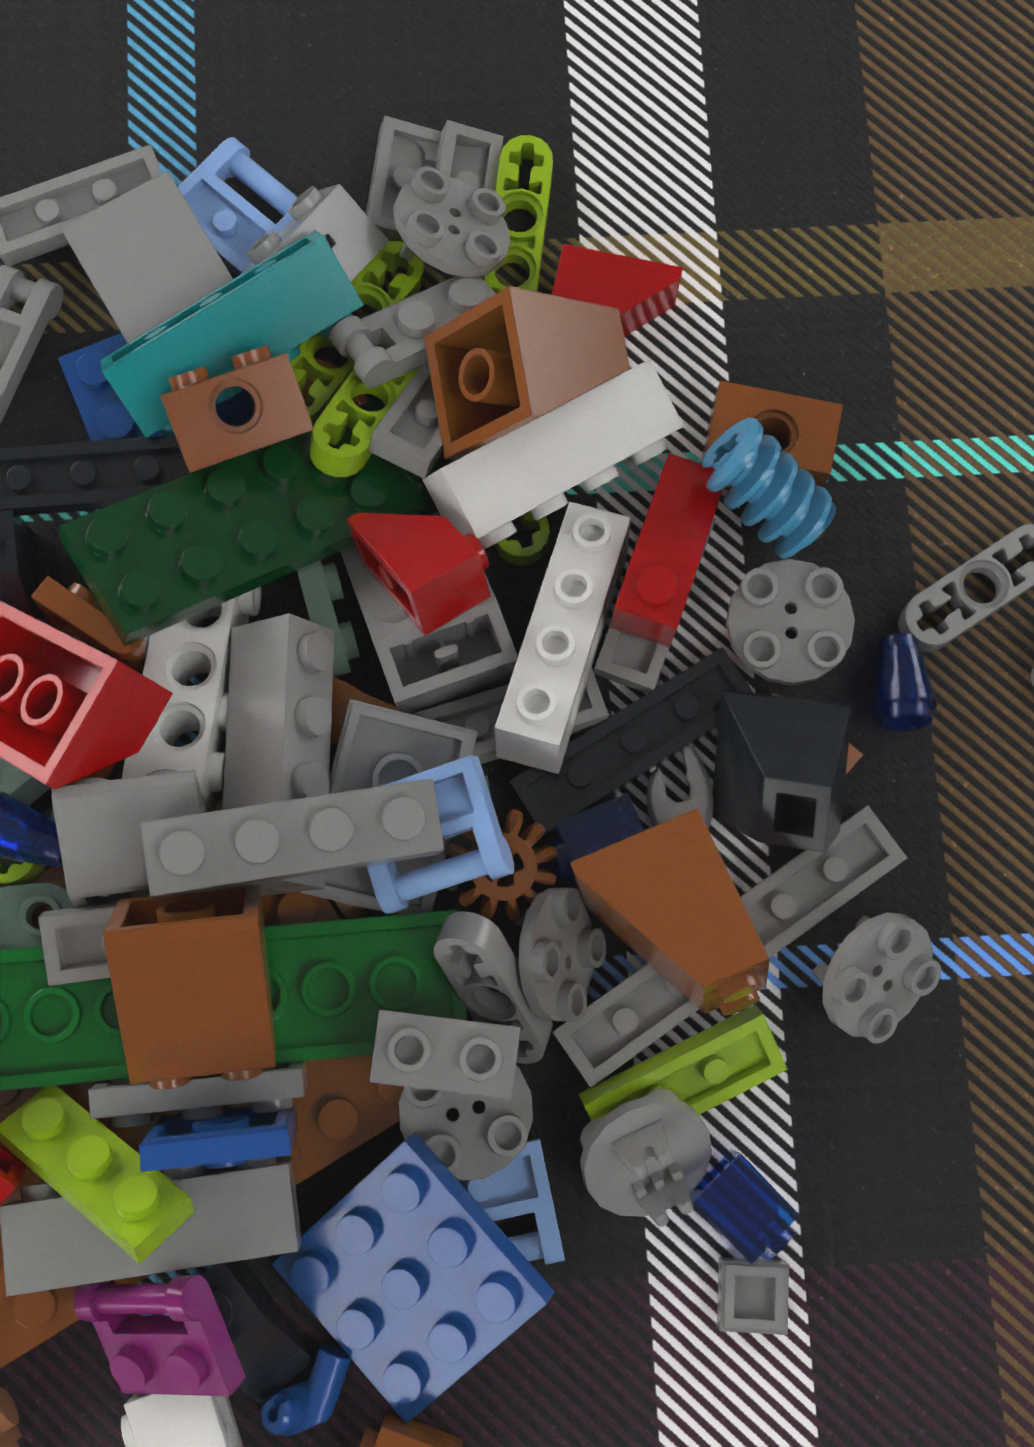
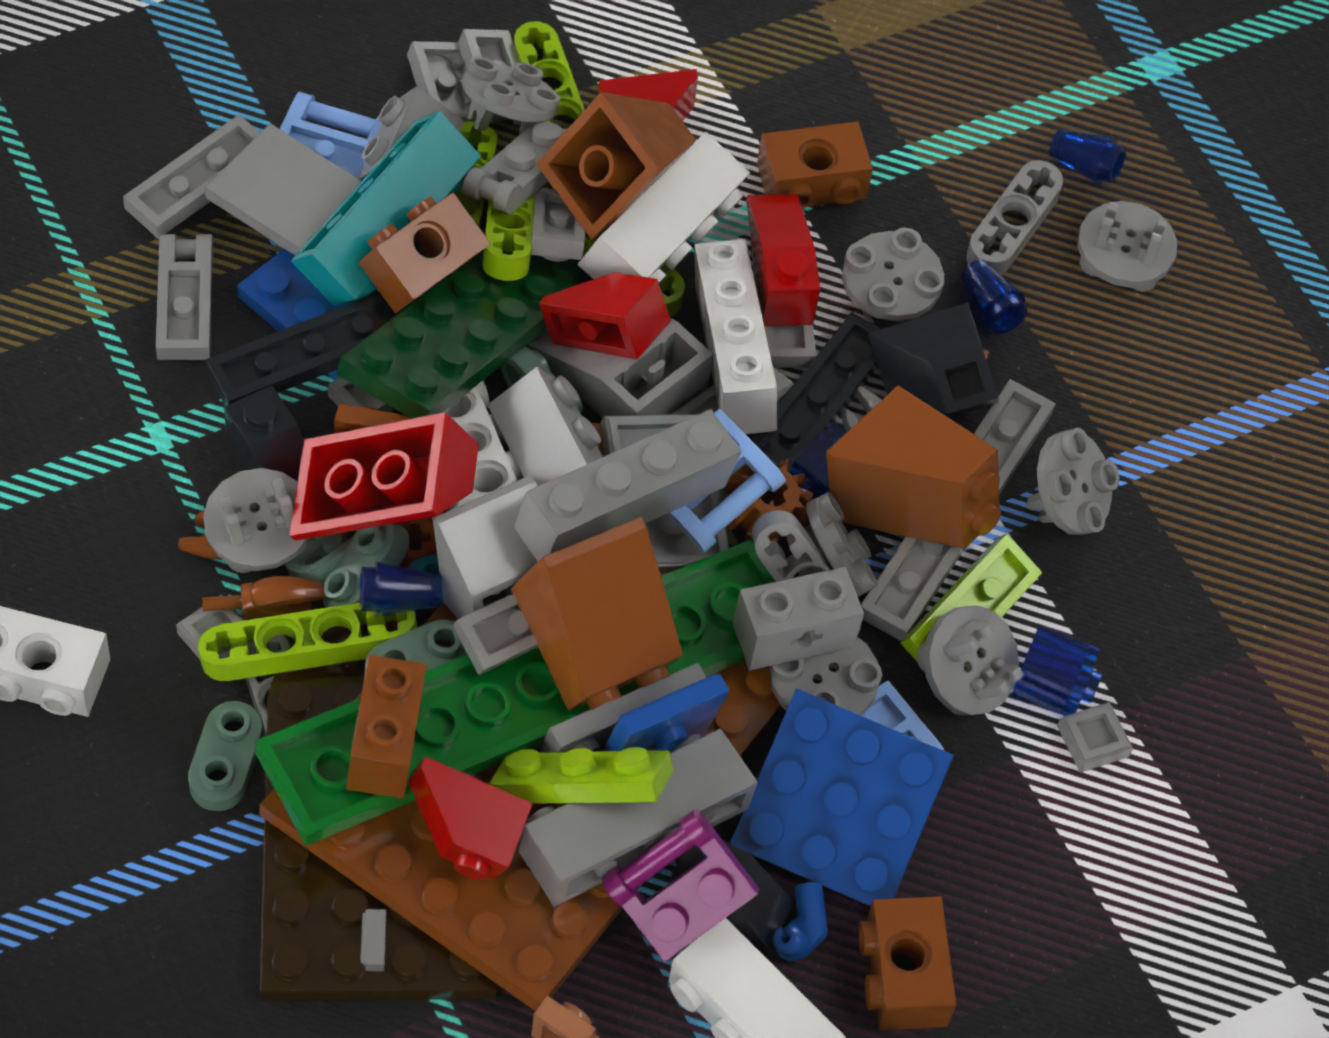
camera: 30 degrees left, 20 degrees down
(770, 486) = (835, 184): dark azure piece -> none

